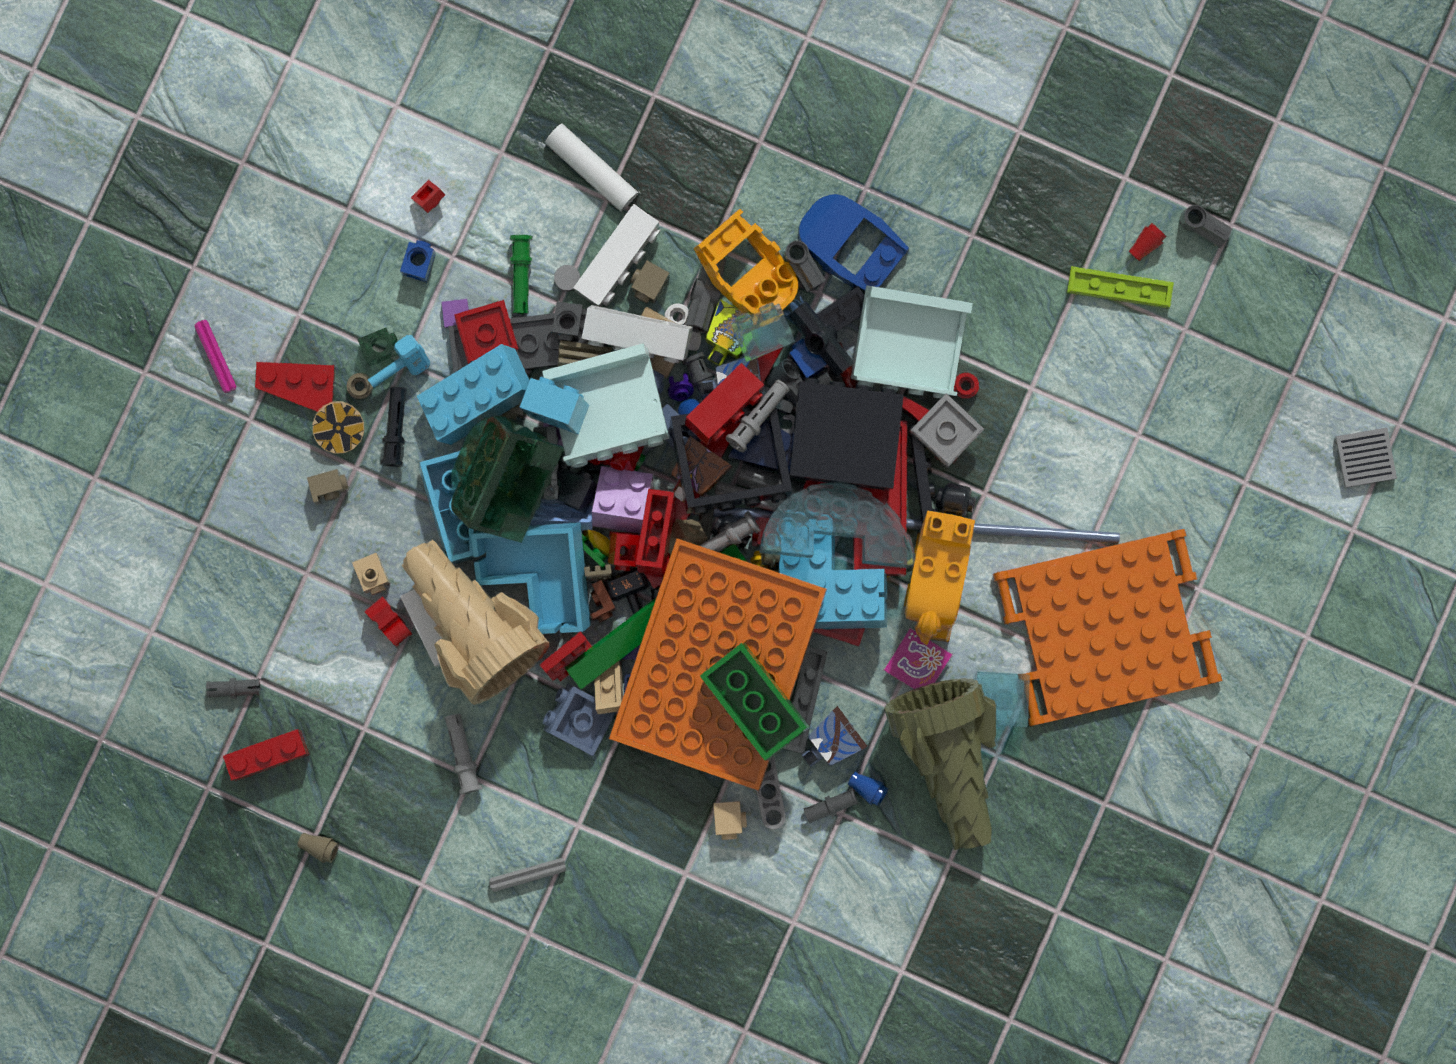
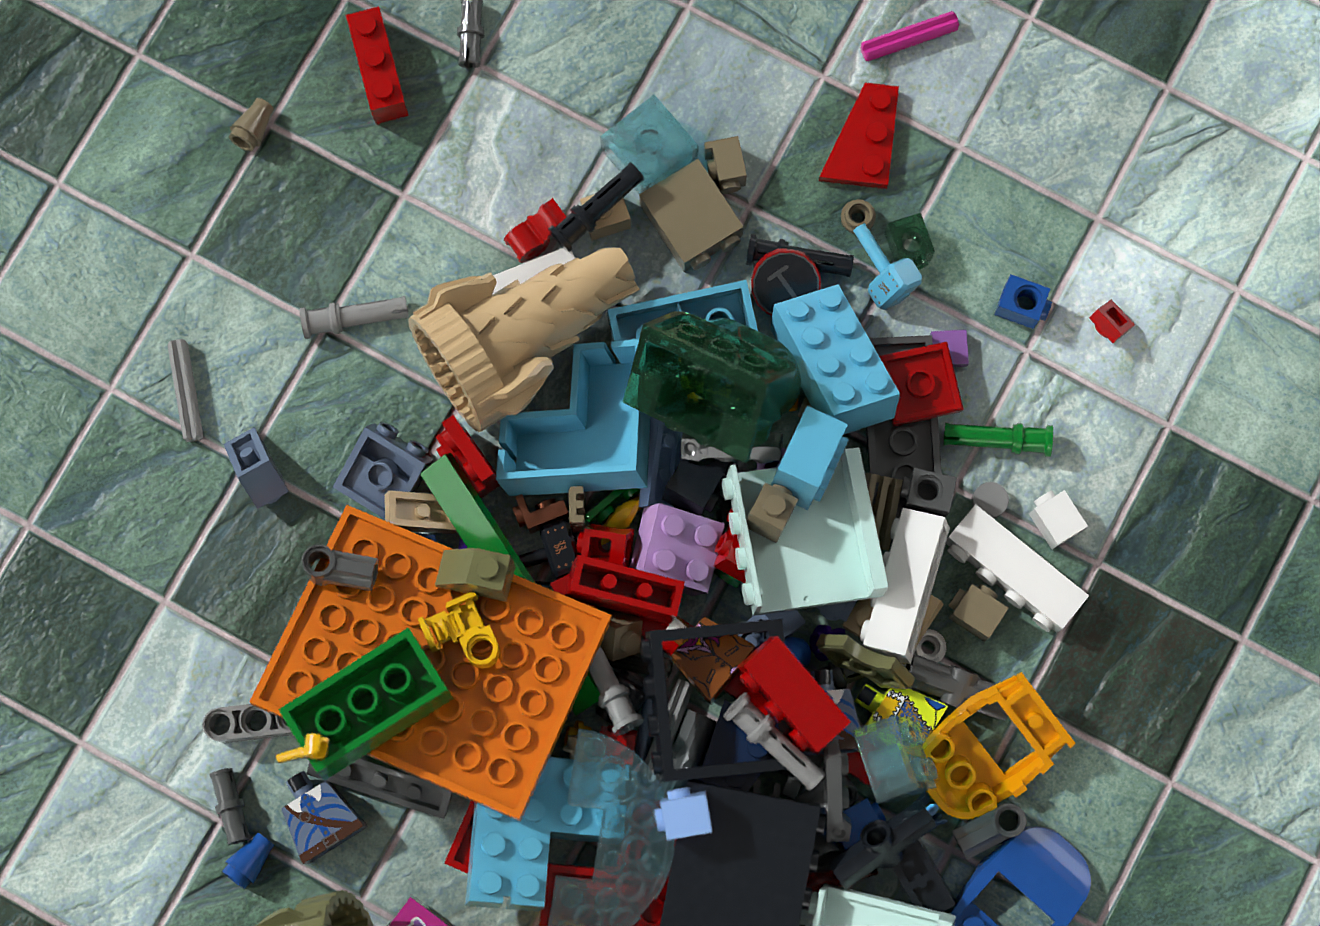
camera: 95 degrees right, 5 degrees down
(317, 544) = (651, 142): none -> clear light blue brick
(338, 427) = (804, 184): tile -> none
(369, 508) = (691, 216): none -> dark tan brick
(380, 585) = (584, 217): none -> black pin
(414, 436) = (783, 276): none -> black tile
(577, 229) = (1057, 518): none -> white brick
(582, 814) = (255, 468): none -> sand blue slope
(591, 167) = (1143, 544): white brick -> none
(594, 429) = (771, 511): none -> dark tan brick
(654, 637) = (476, 571): none -> olive slope
(658, 731) = (343, 570): none -> dark grey piece
(690, 643) = (463, 622): none -> yellow piece
(698, 348) = (881, 669): none -> olive tile
(729, 819) = (226, 663): tan brick -> none
(789, 729) = (314, 748): none -> yellow hand
(790, 372) = (835, 795): none -> dark grey hinge
(813, 474) = (683, 814): none -> light blue brick

